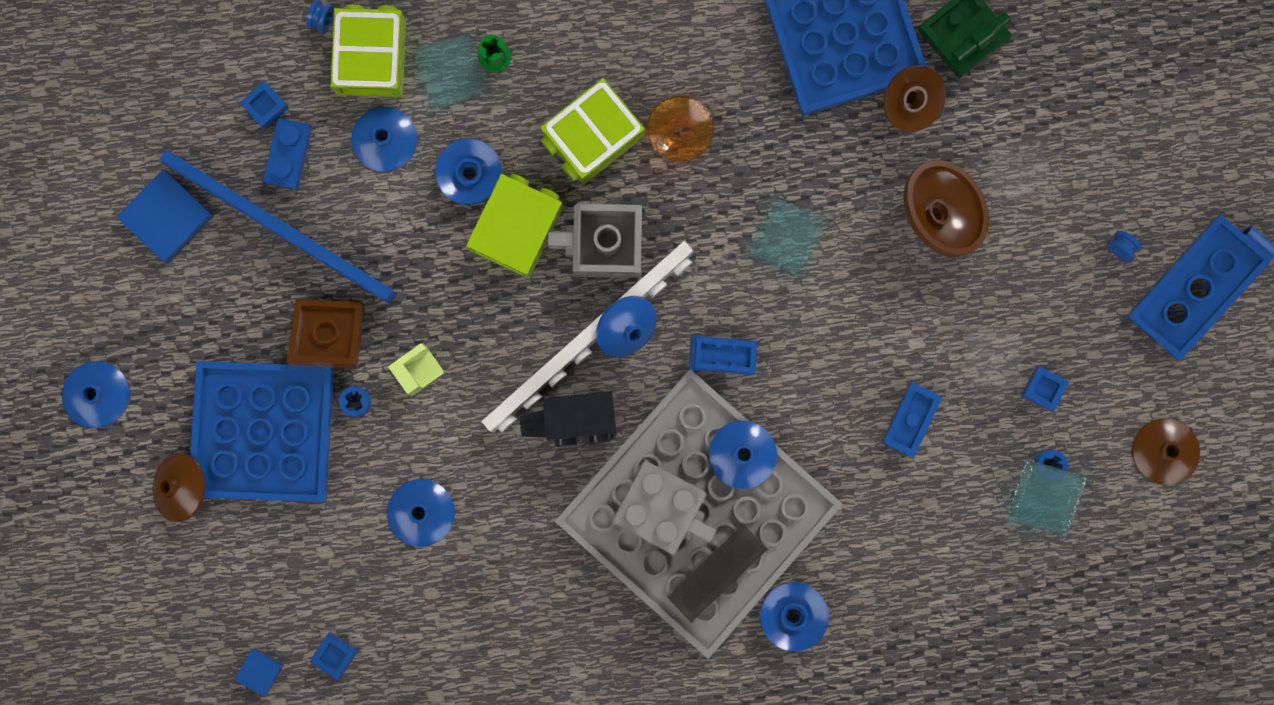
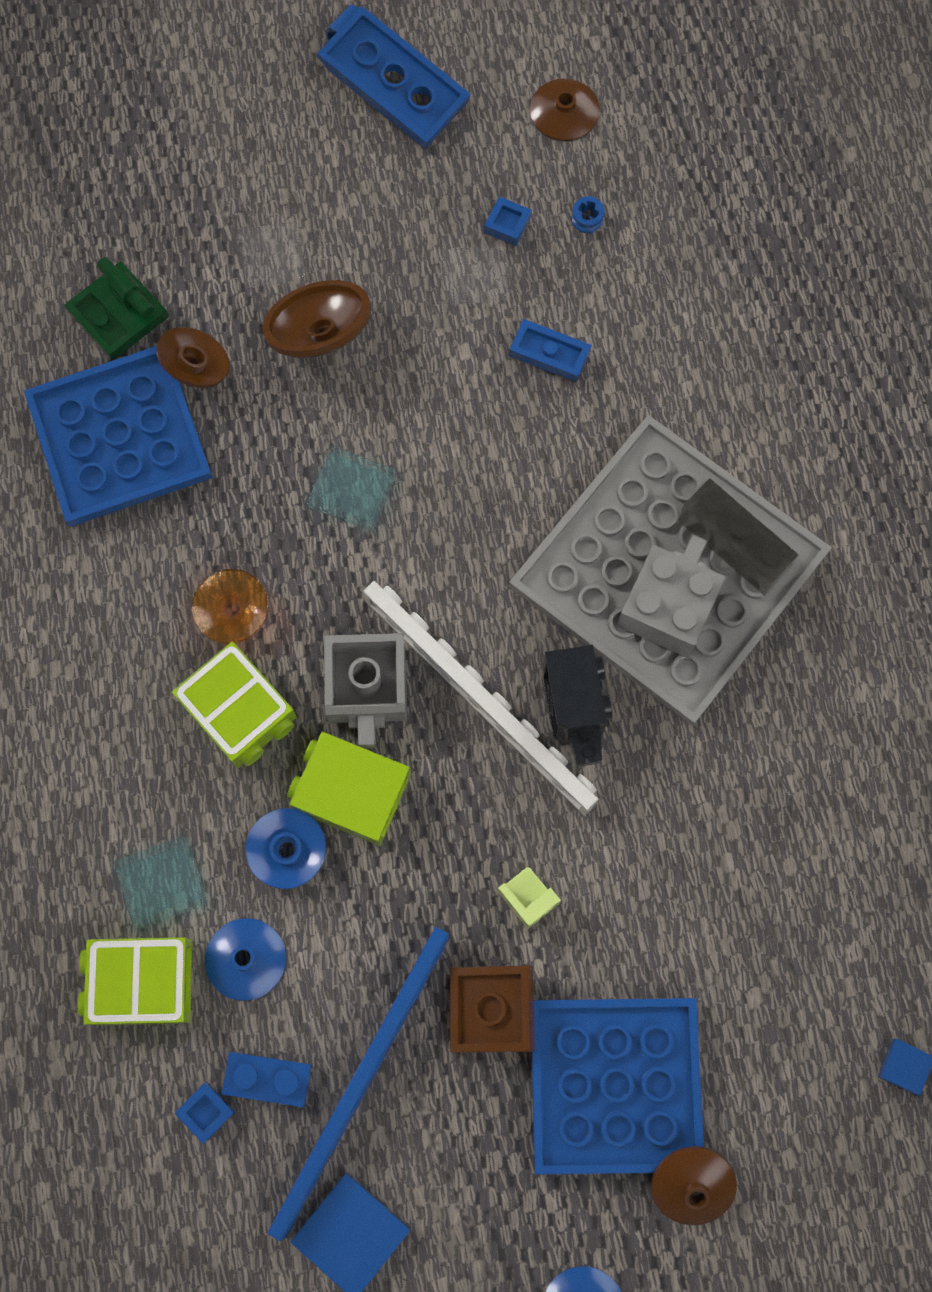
camera: 90 degrees left, 10 degrees down
(320, 16) = (91, 1047): blue bush -> none
(333, 656) = (876, 976): blue tile -> none
(344, 402) = (569, 958): blue bush -> none
(438, 512) = (679, 895): blue dish -> none
(497, 62) = (142, 840): green bush -> none
(626, 326) = (464, 652): blue dish -> none
(722, 355) = (491, 548): blue plate -> none
(724, 456) = (599, 536): blue dish -> none
(811, 622) = (776, 444): blue dish -> none
(1046, 498) = (623, 216): clear light blue piece -> none
(1124, 246) = (351, 149): blue bush -> none

